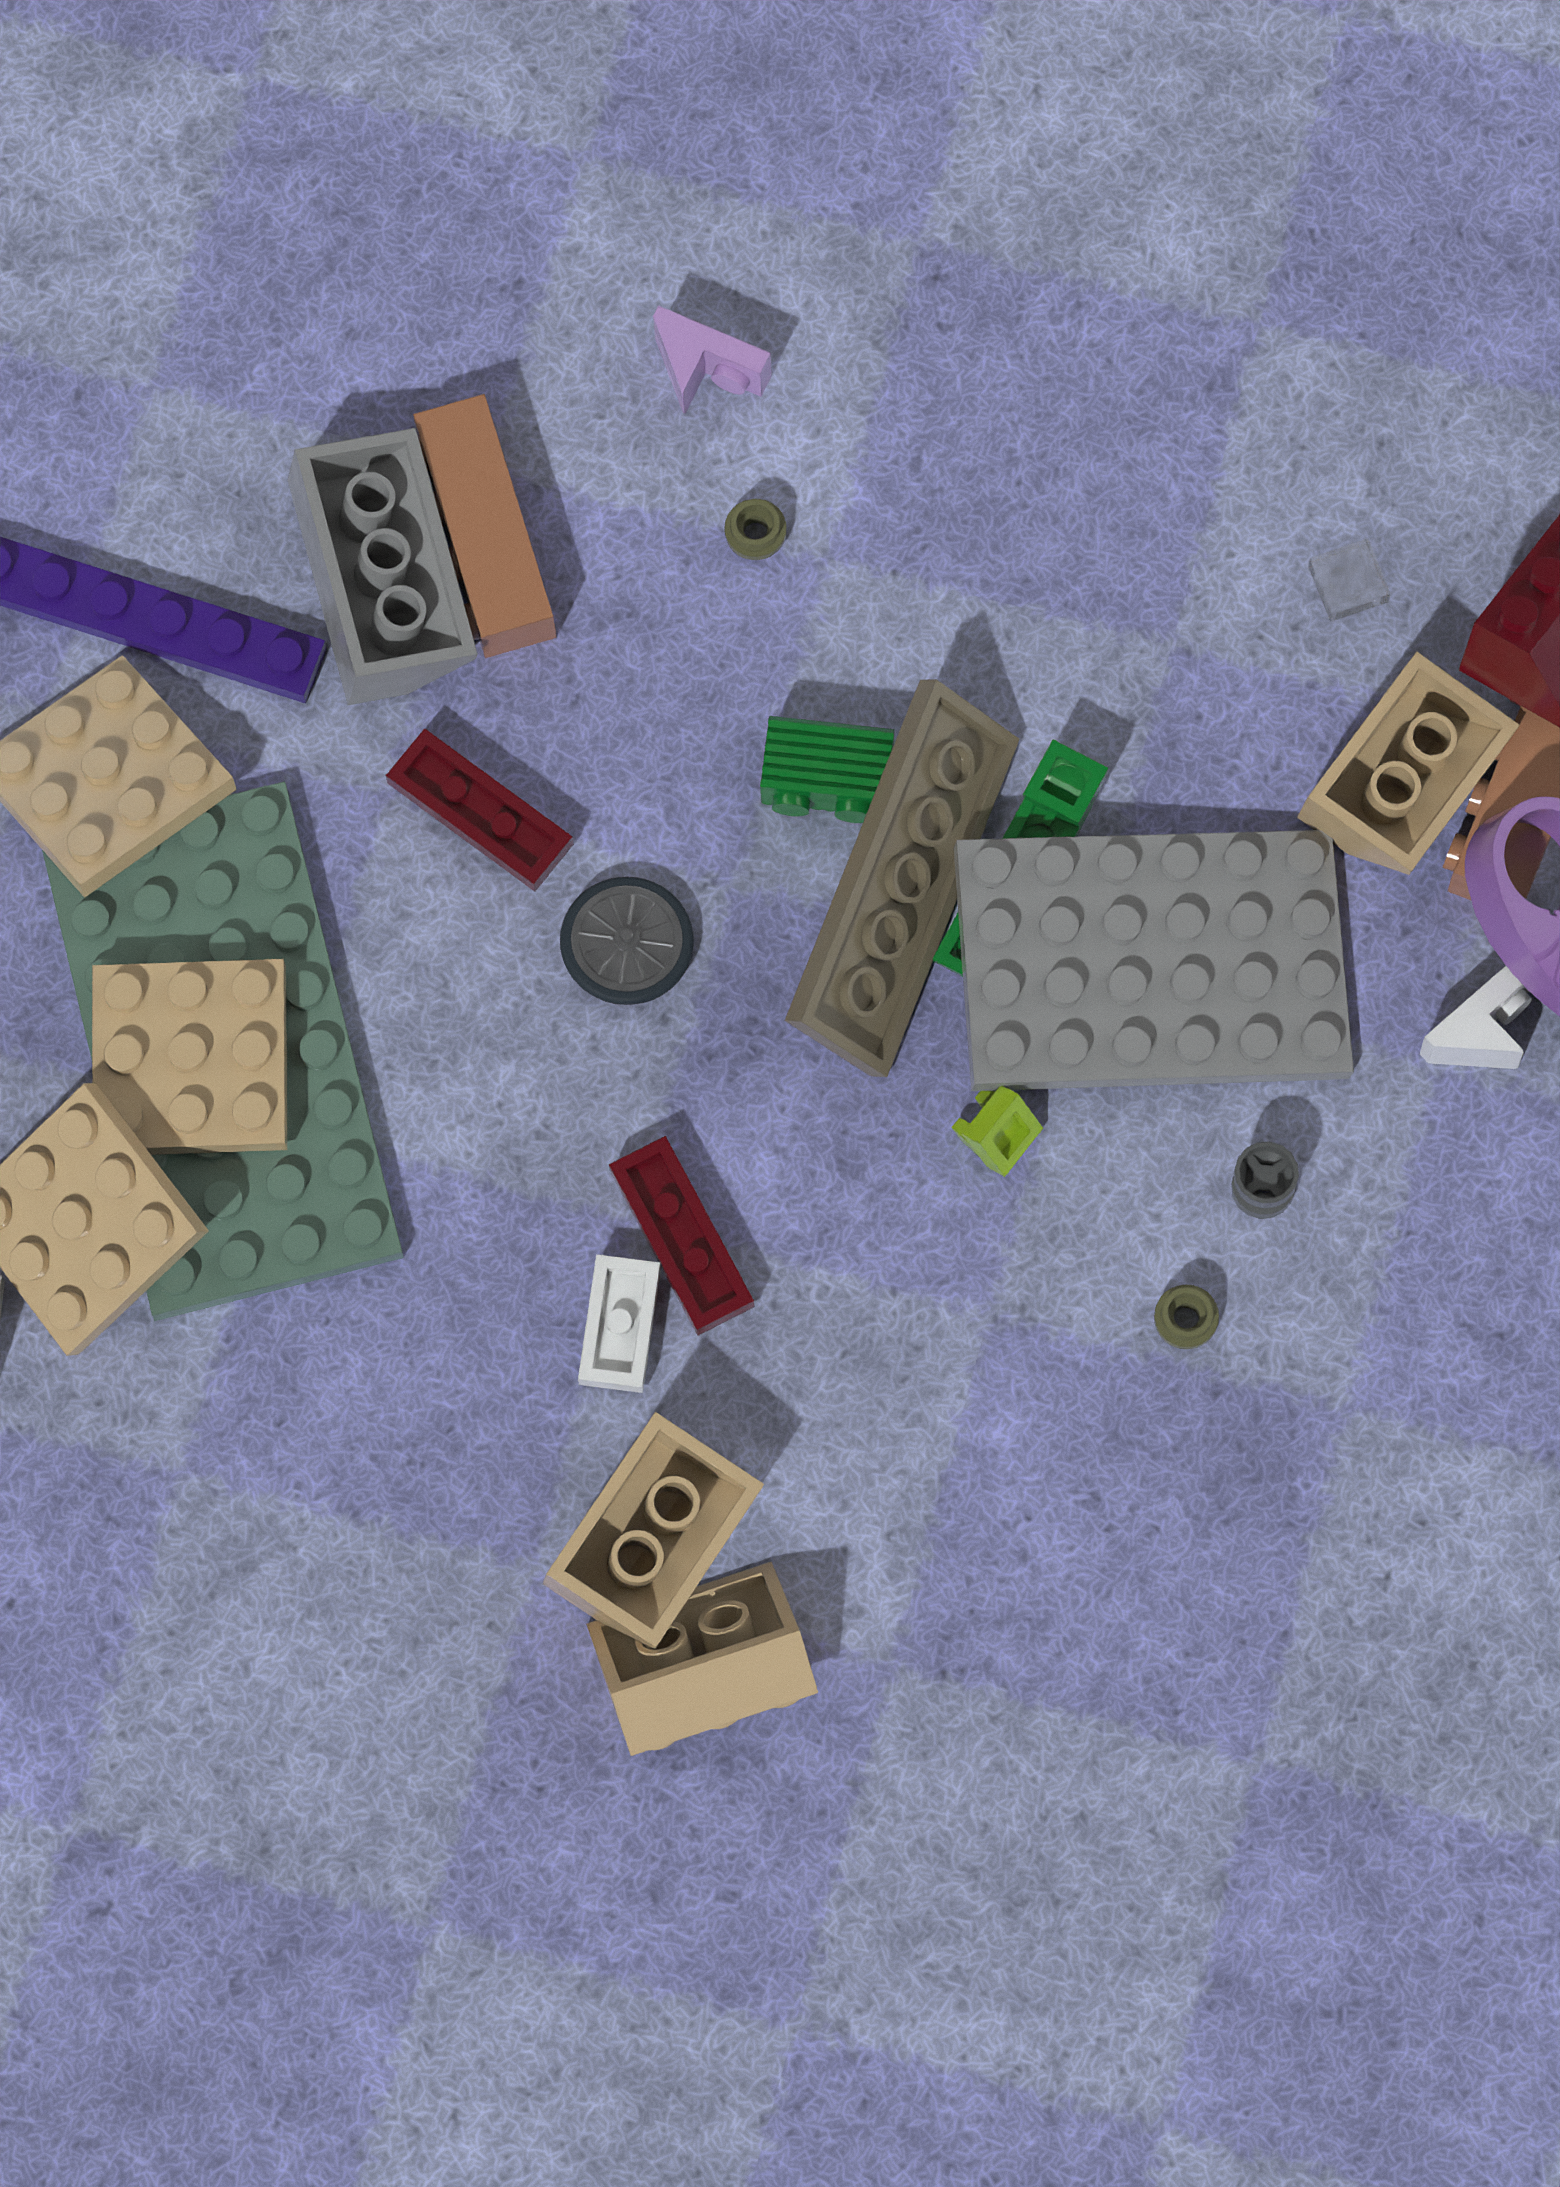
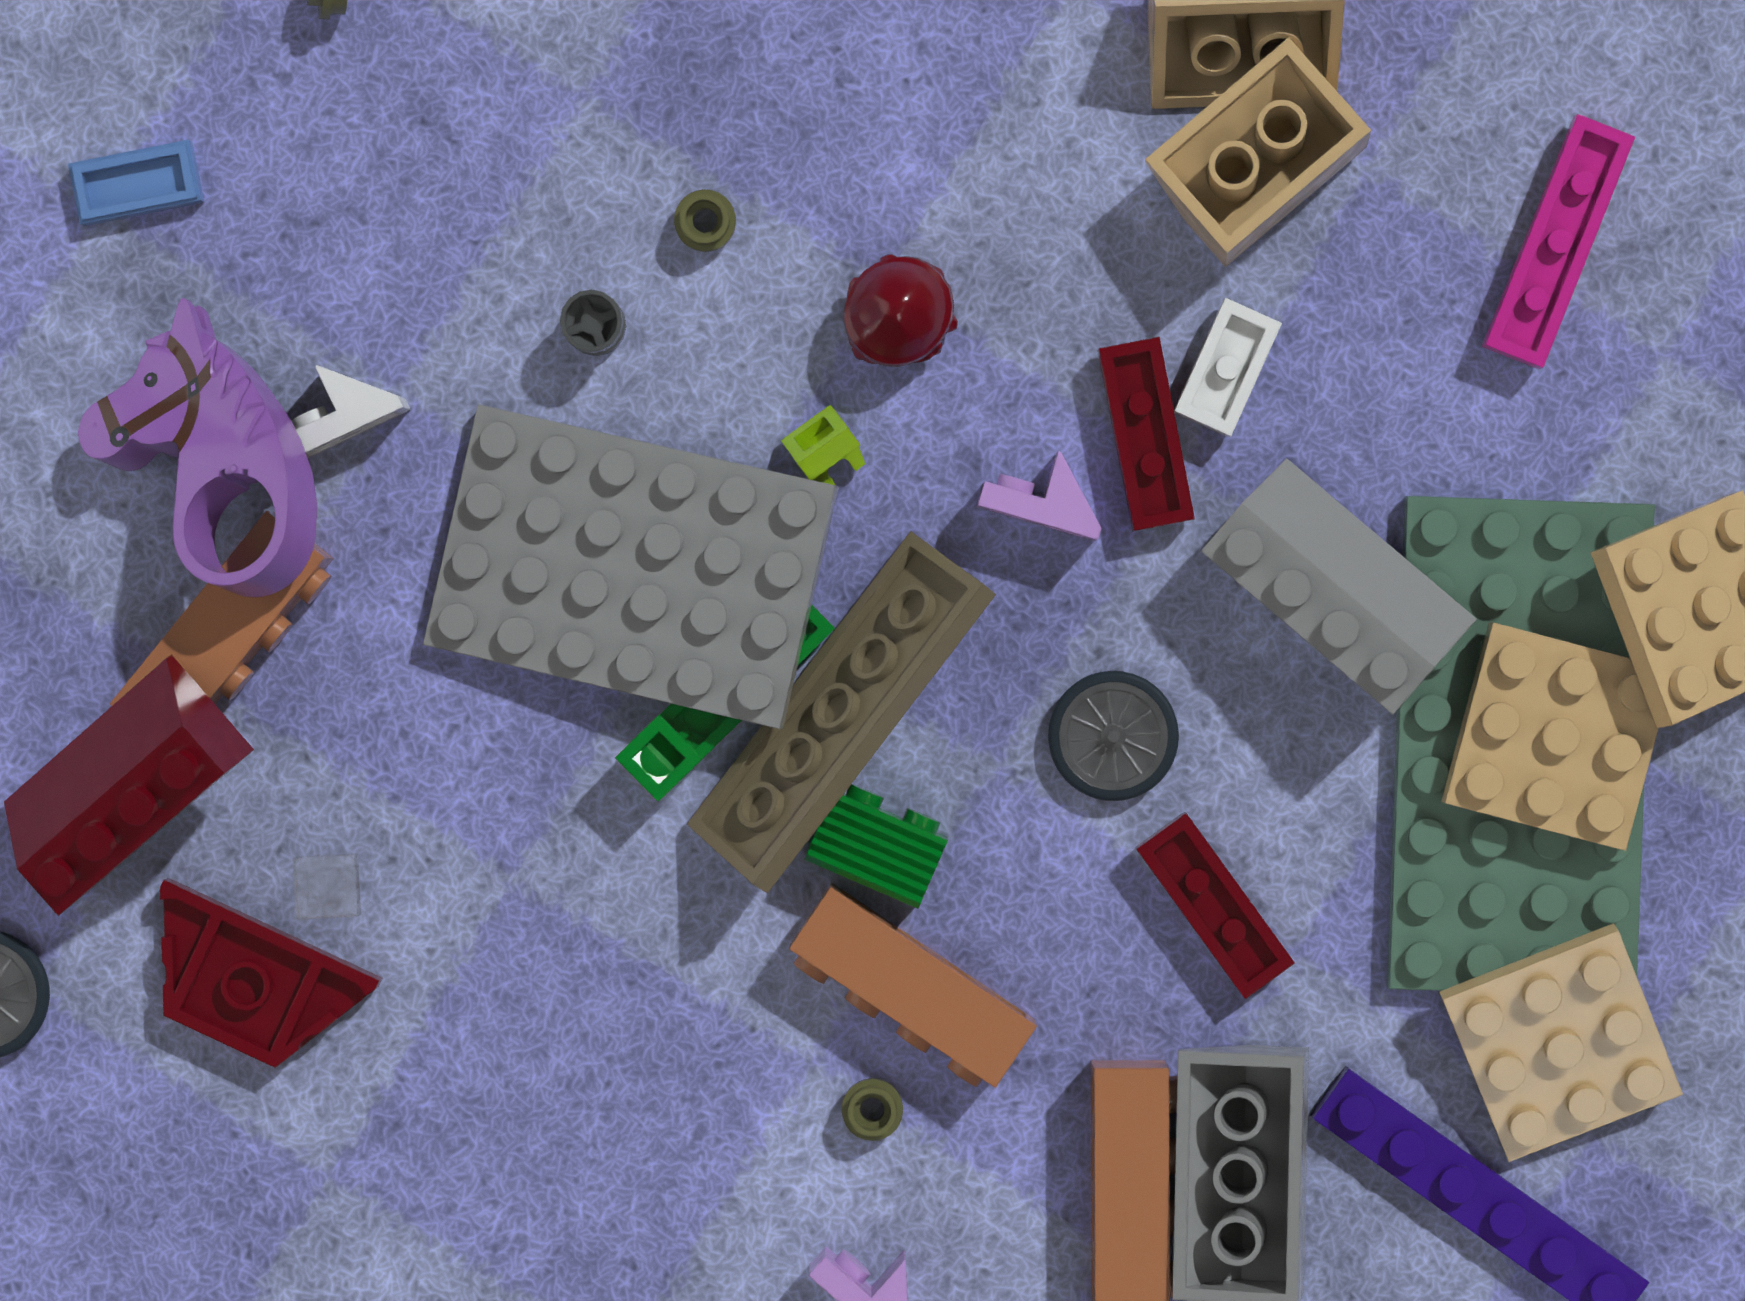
camera: 165 degrees left, 15 degrees up
(321, 1544) = (1558, 241): none -> dark pink plate
(447, 1134) = (1339, 585): none -> light grey slope
(745, 1133) = (1060, 509): none -> lavender slope
(752, 648) = (912, 986): none -> nougat brick
(964, 1280) = (898, 312): none -> dark red hair
(1395, 475) = (250, 979): none -> dark red wing
(1408, 768) = (332, 674): tan slope -> none

